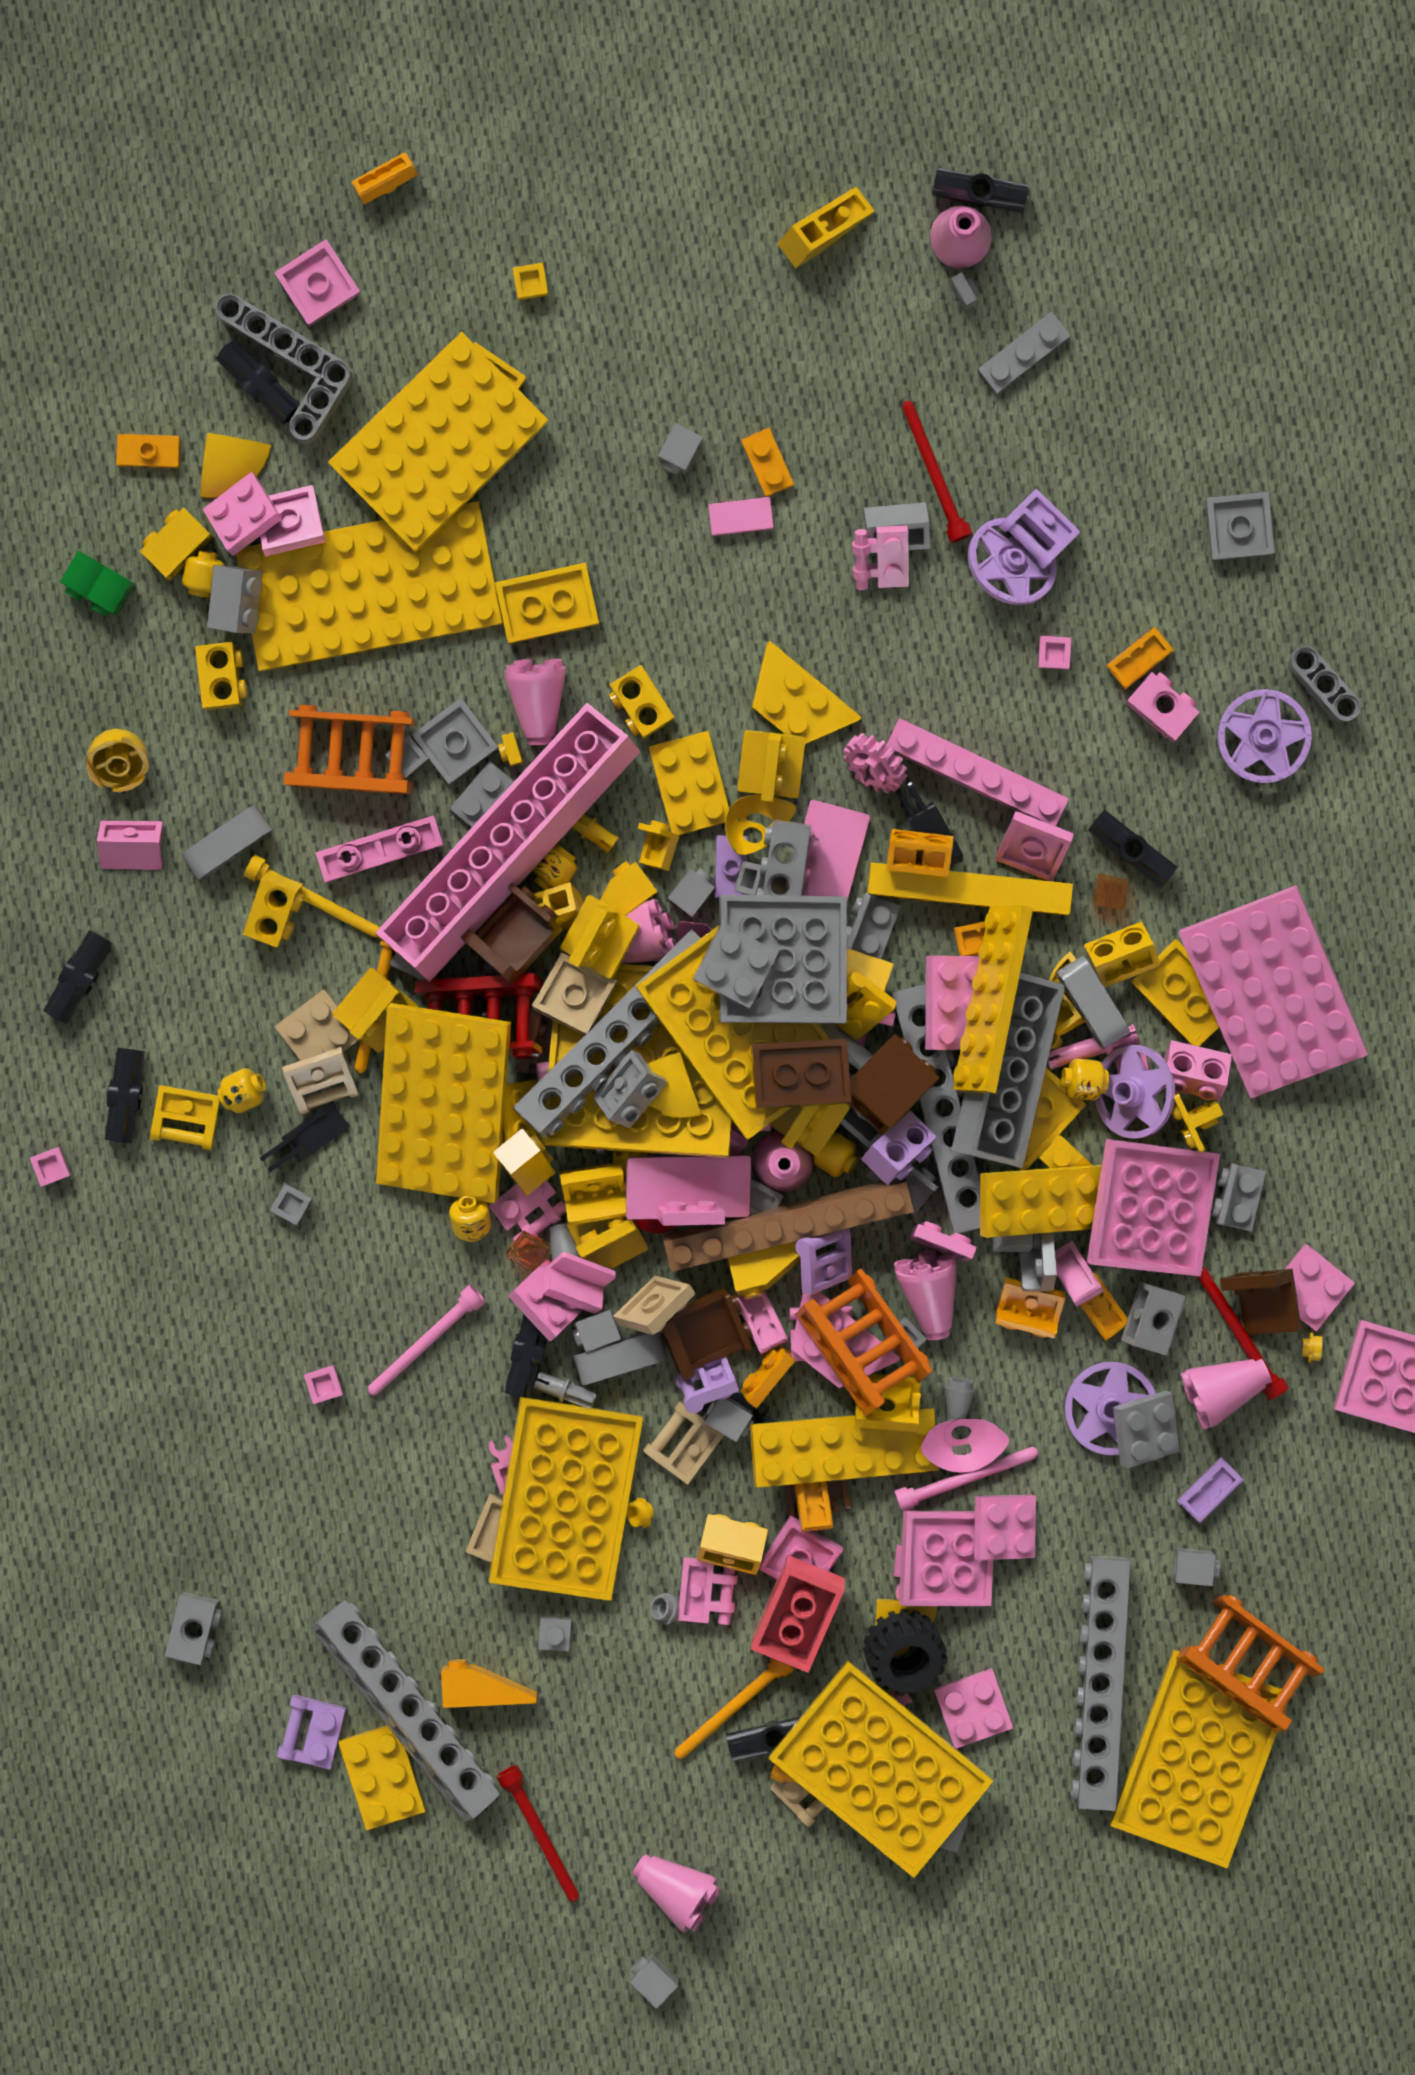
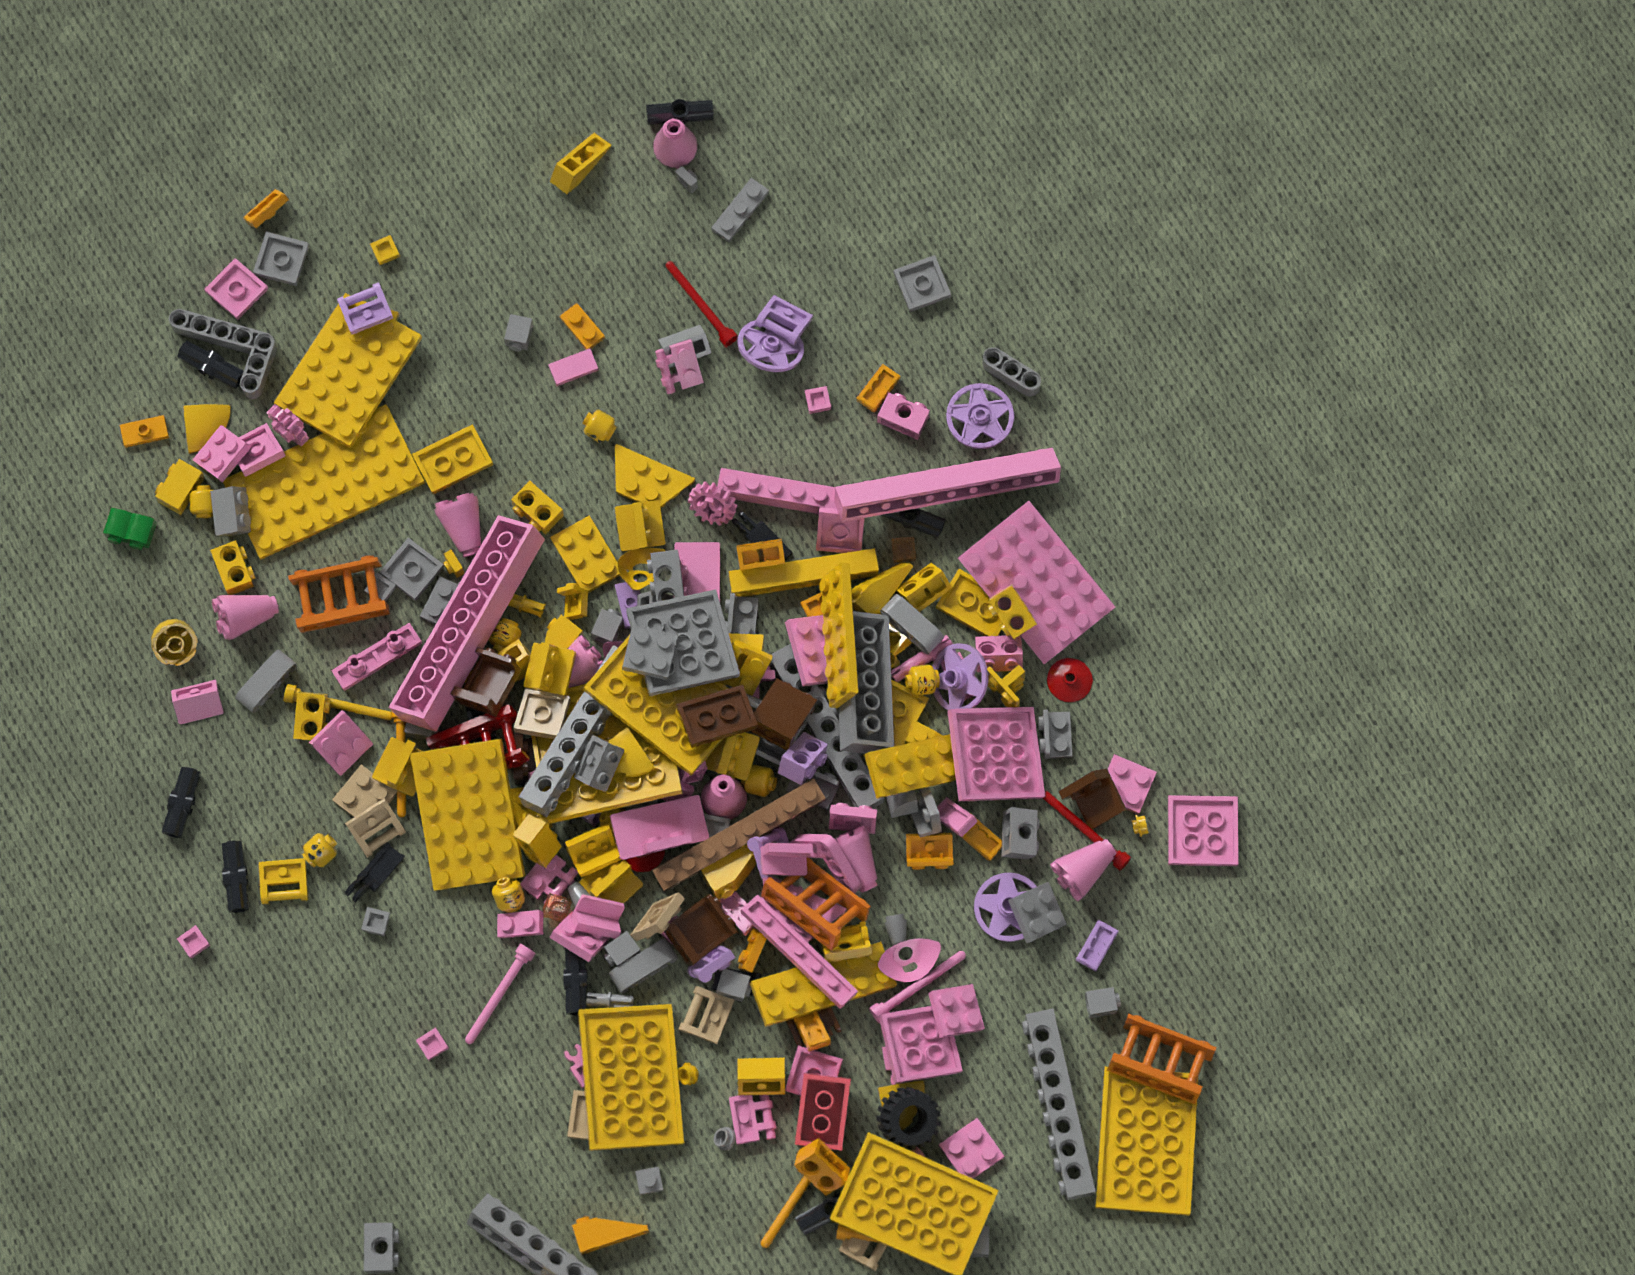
camera: 20 degrees left, 15 degrees down
(218, 743) = (242, 613): none -> bright pink cone
(303, 956) = (341, 743): none -> bright pink plate
(338, 500) = (287, 425): none -> bright pink gear
(388, 255) = (281, 258): none -> light grey plate
(476, 1260) = (520, 924): none -> bright pink plate
(481, 374) = (367, 314): none -> lavender plate
(753, 611) = (599, 426): none -> yellow head
(777, 1686) = (822, 1167): none -> light orange brick
(823, 1404) = (798, 951): none -> bright pink plate
(838, 1279) = (785, 859): none -> bright pink panel
(900, 1285) = (827, 848): none -> bright pink beam
(1059, 941) = (876, 592): none -> yellow slope
(1193, 825) = (947, 484): none -> bright pink brick
(1236, 1026) = (1017, 608): none -> yellow brick
(1261, 1126) = (1067, 690): none -> red dish

